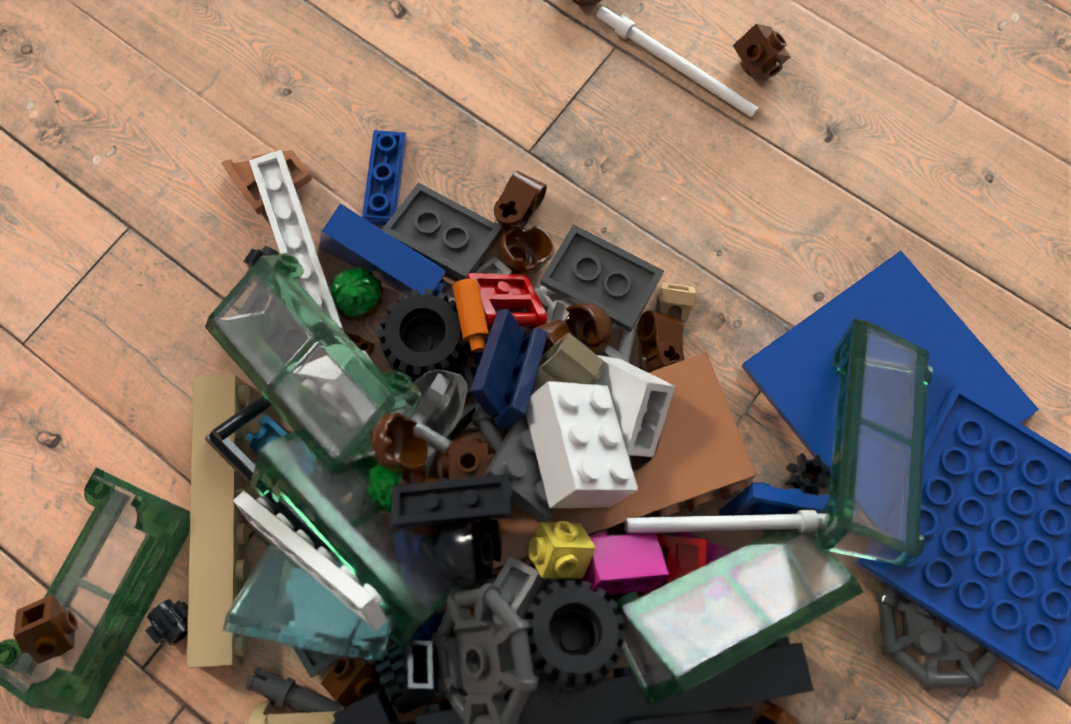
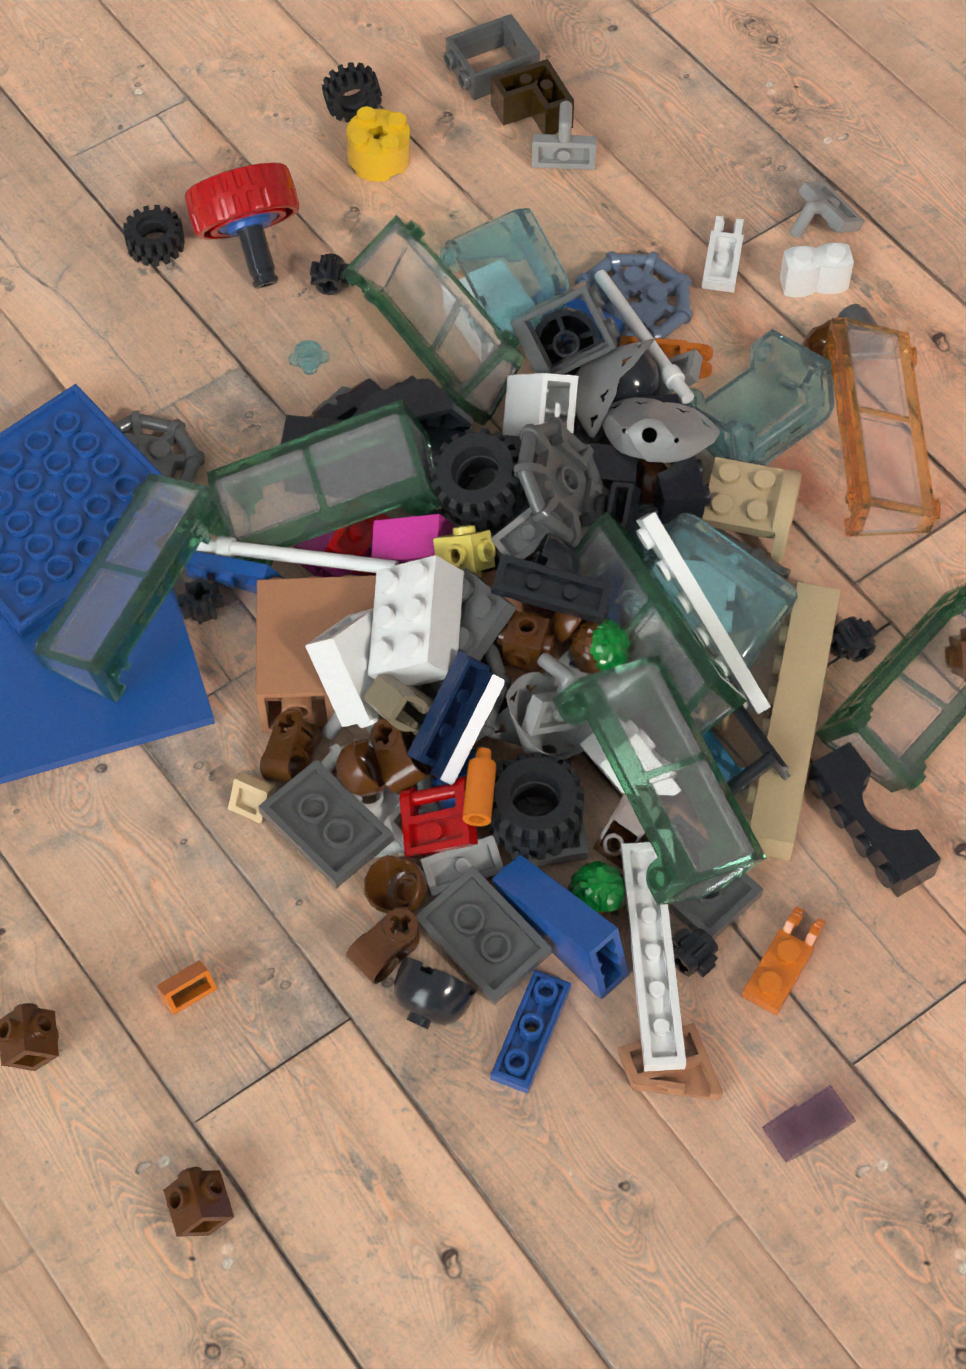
camera: 165 degrees left, 15 degrees down
(159, 164) = (809, 1124): none -> slope
(159, 462) = (899, 856): none -> black arch
(193, 289) = (782, 964): none -> orange hinge
(397, 445) = (587, 649): reddish brown hair -> none
(466, 171) = (431, 994): none -> black cylinder
(626, 29) = (171, 1130): white bar -> none
(661, 127) = (182, 980): none -> orange piece

